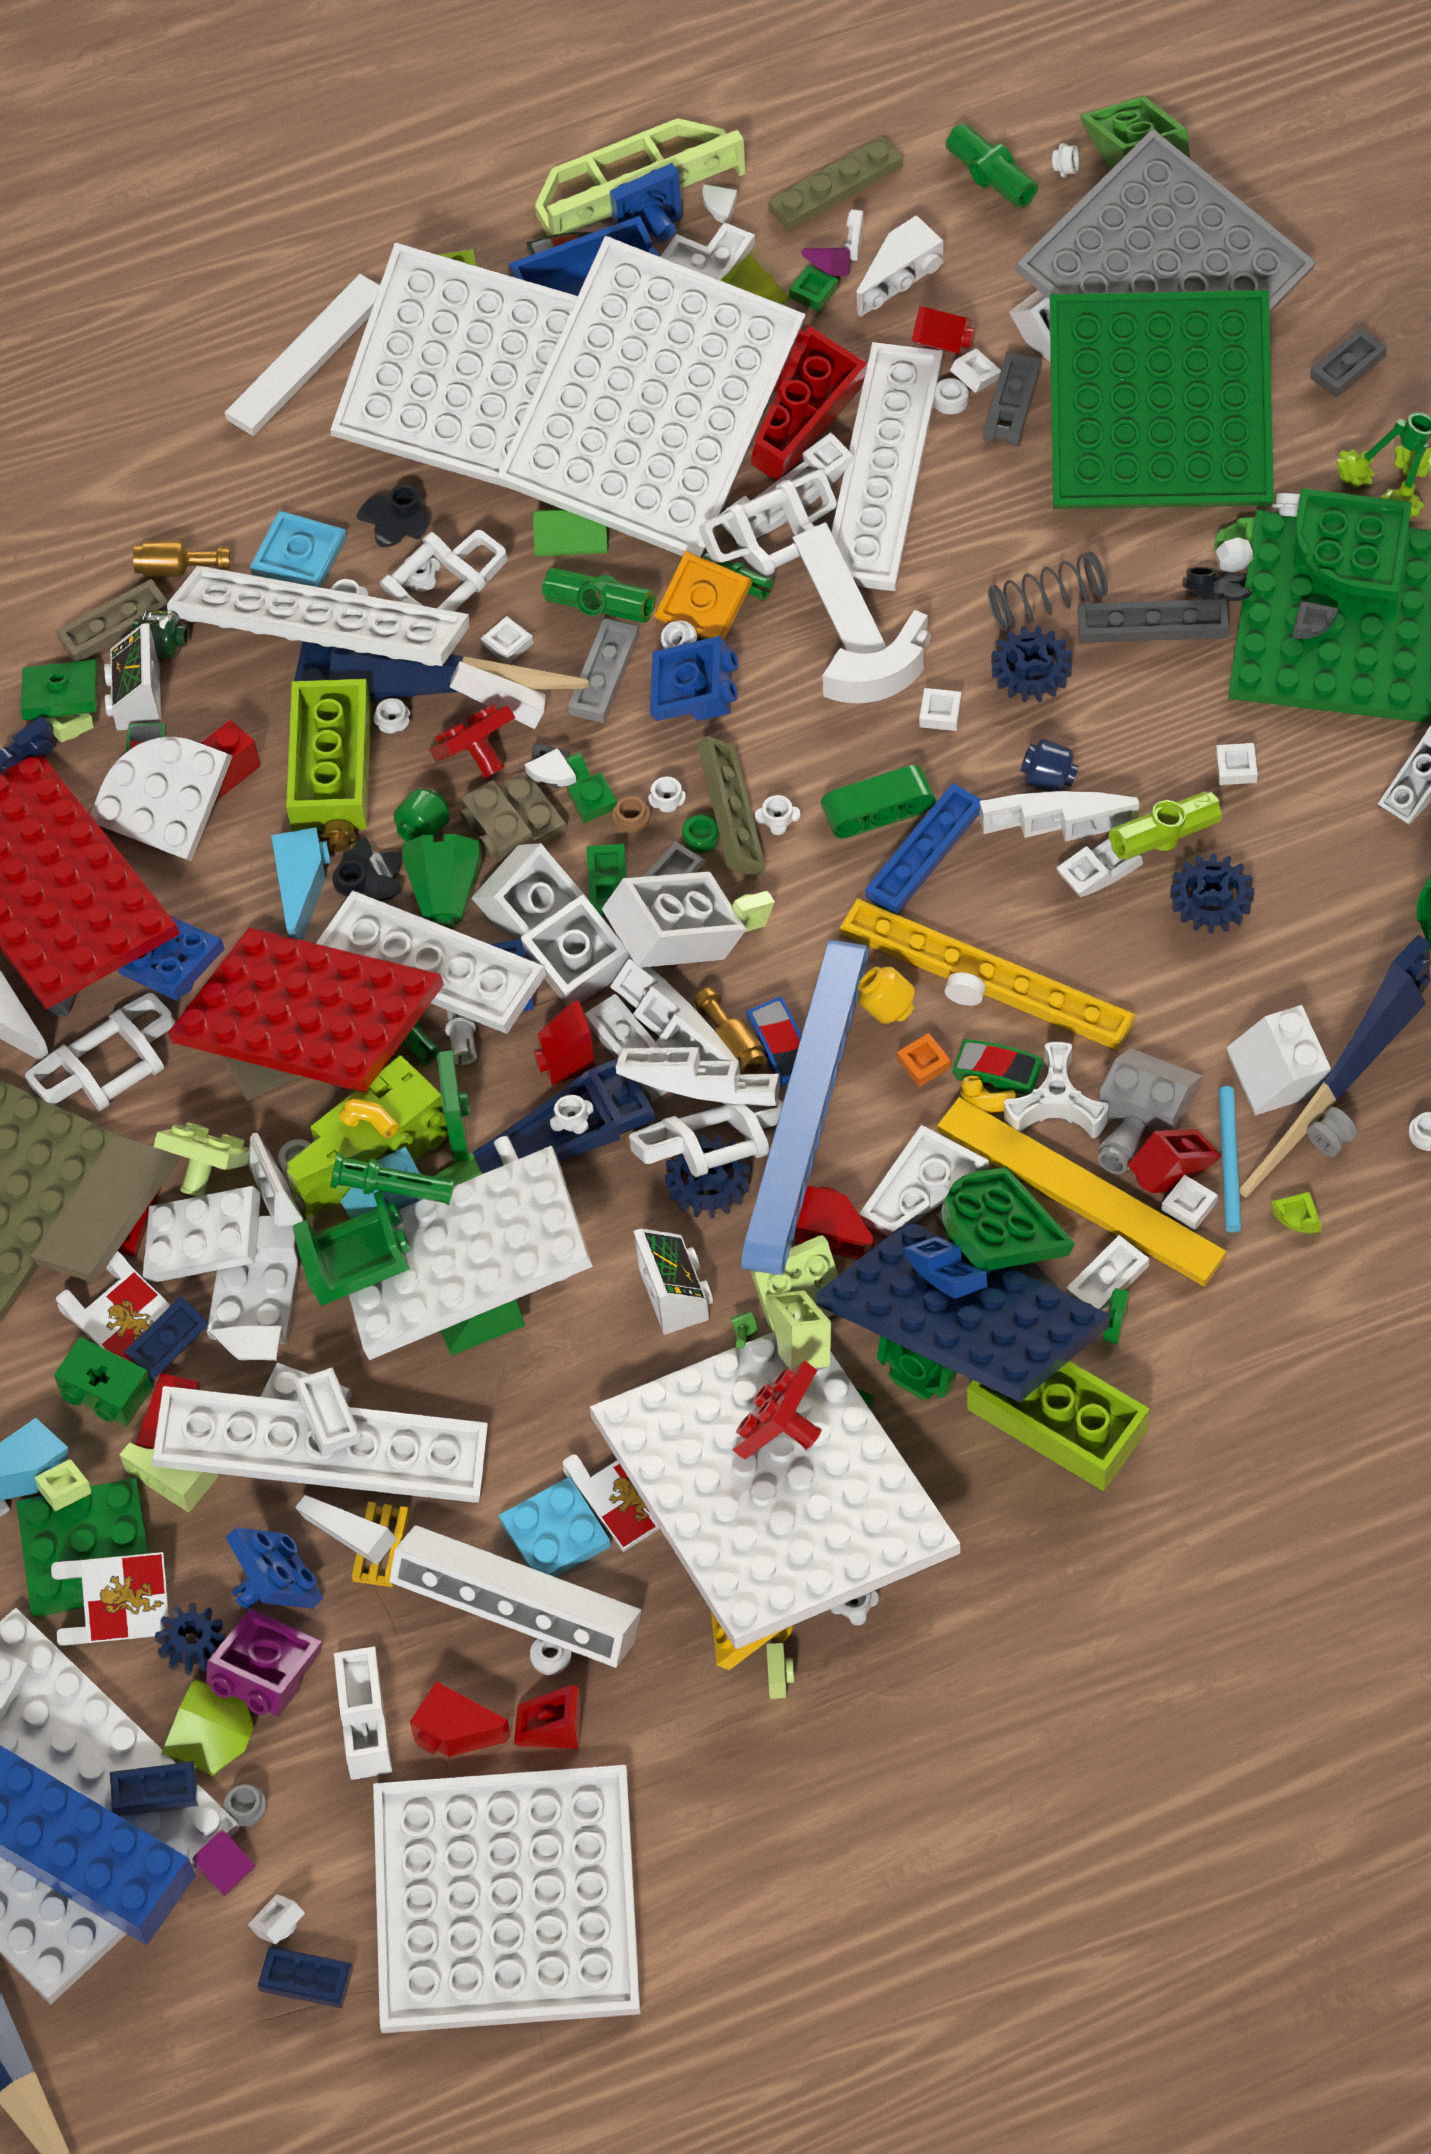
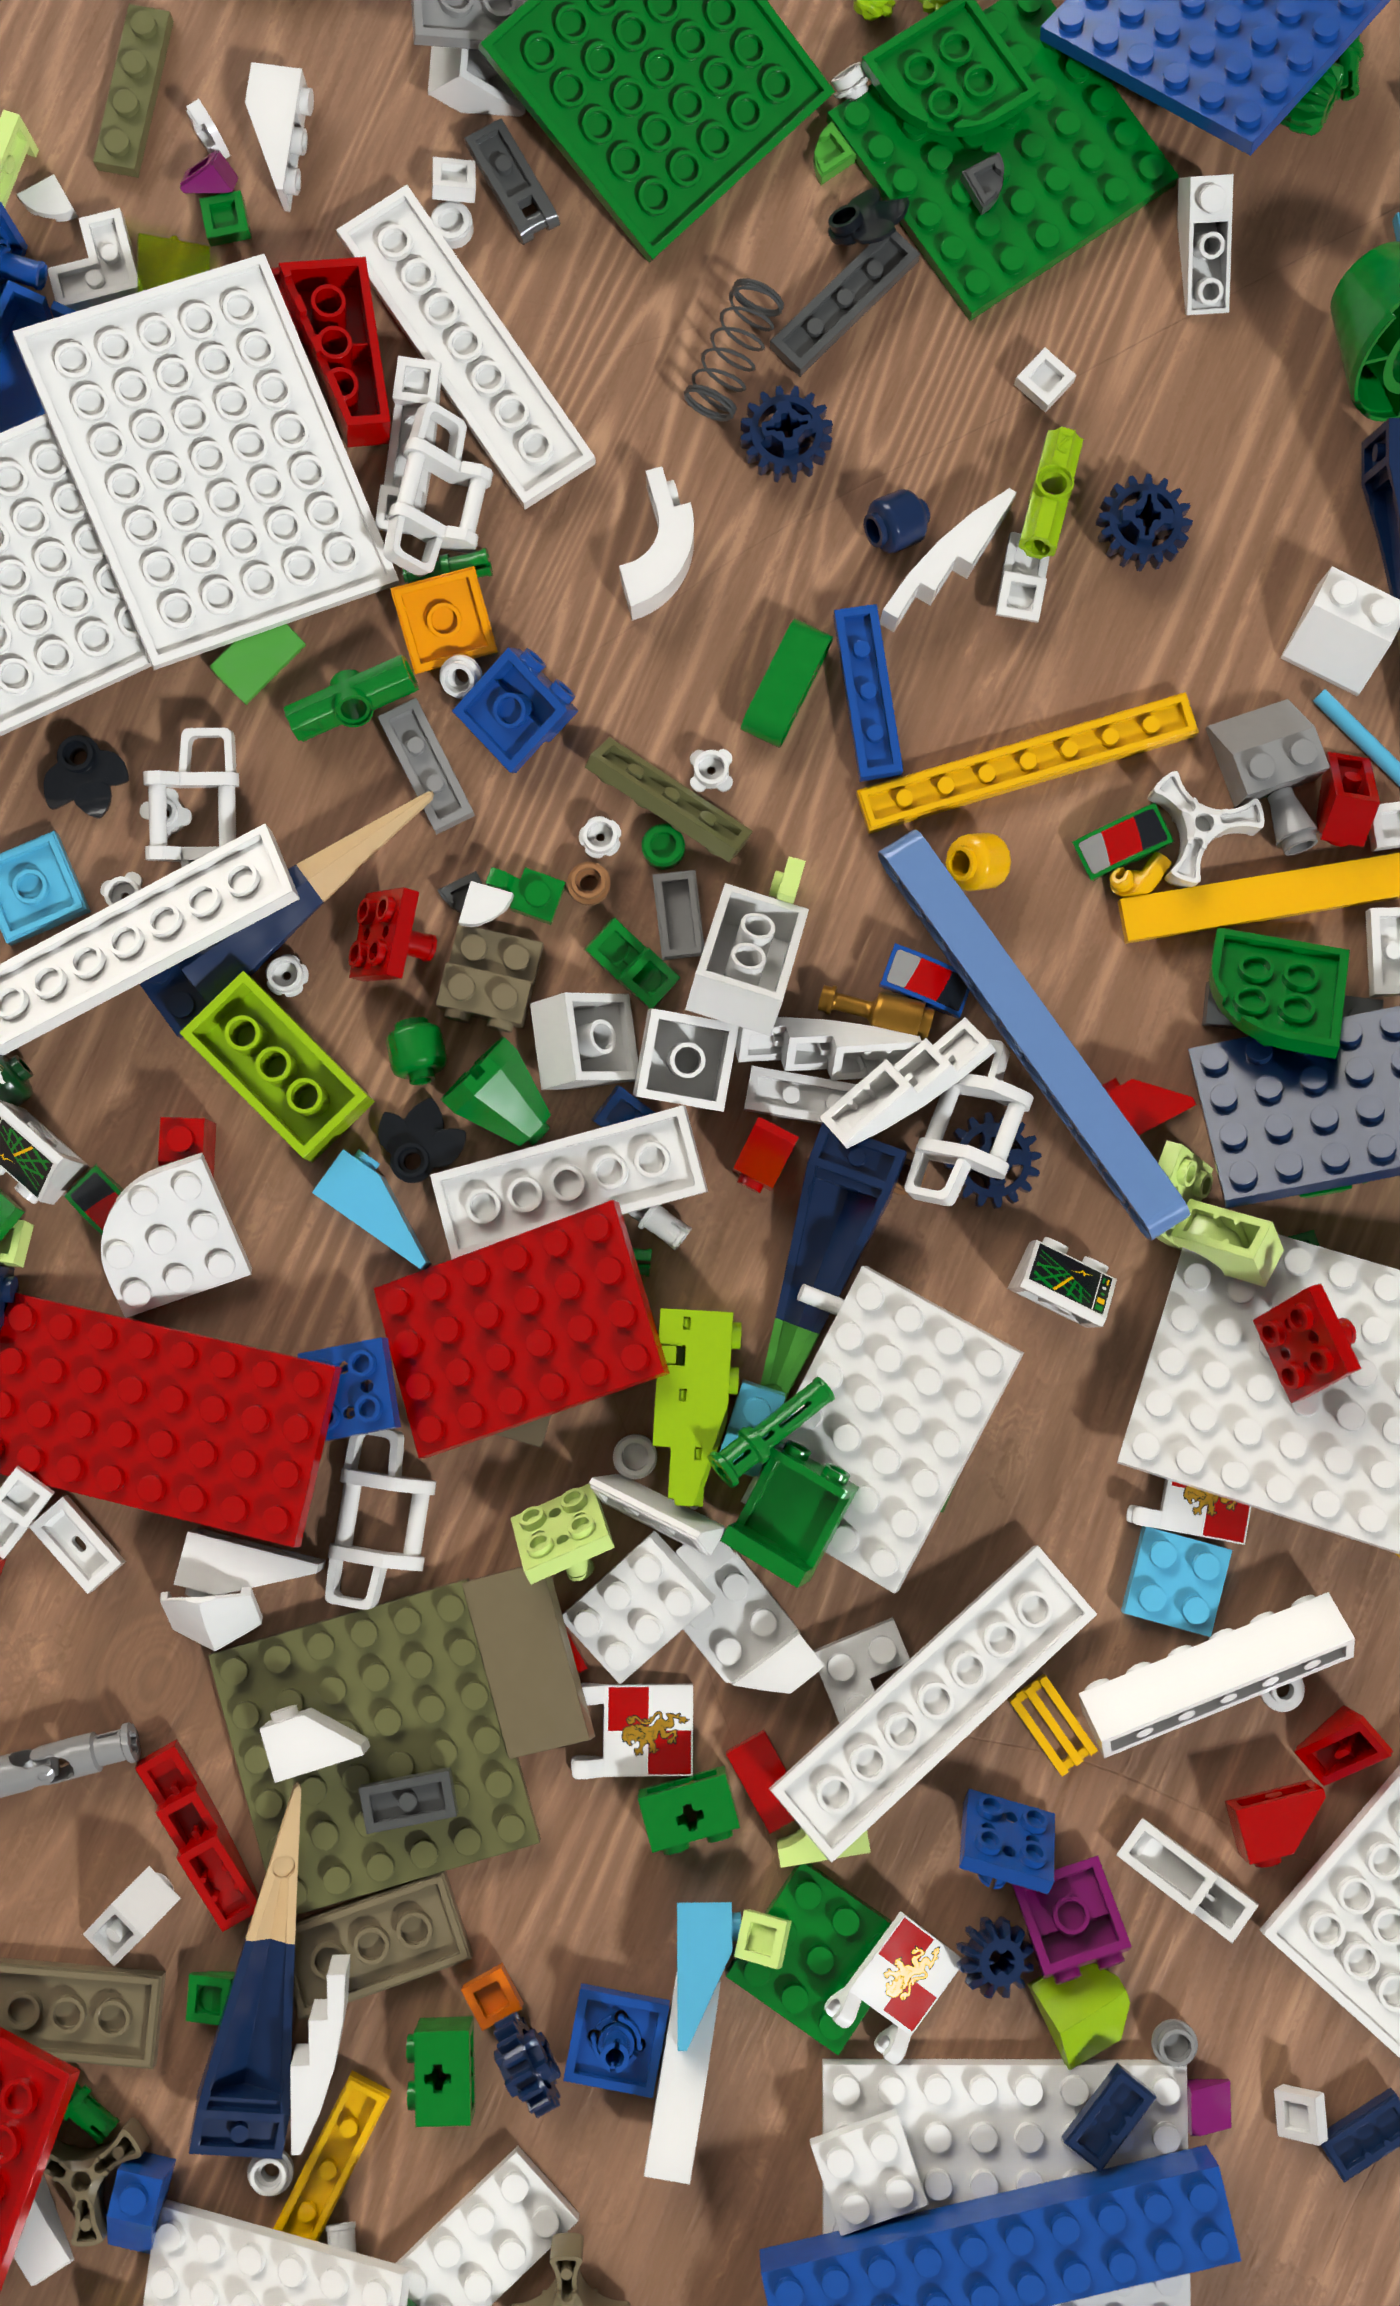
camera: 50 degrees left, 25 degrees up
(166, 1338) = (702, 1723): dark blue plate -> none
(327, 1411) = (918, 1673): white tile -> none
(338, 835) = (360, 1132): pearl gold plate -> none
(355, 1532) = (1031, 1744): white piece -> none
(371, 1112) = (695, 1391): yellow arm -> none
(454, 1105) = (735, 1298): green plate -> none
(491, 689) = (368, 873): white piece -> none
(507, 640) = (309, 810): white tile -> none
(571, 1106) = (839, 1202): white plate -> none
(744, 1326) = (1150, 1265): bright green hand -> none
(838, 591) = (559, 510): white tile -> none
(918, 1181) = (1162, 1003): white wing -> none
(923, 1060) = (1059, 891): orange plate -> none
(940, 709) = (750, 546): white plate -> none
(943, 331) = (394, 164): red slope -> none
(943, 1267) = (1289, 1079): blue slope -> none
(965, 989) = (1030, 795): white tile -> none
(1234, 555) = (853, 175): white tile -> none

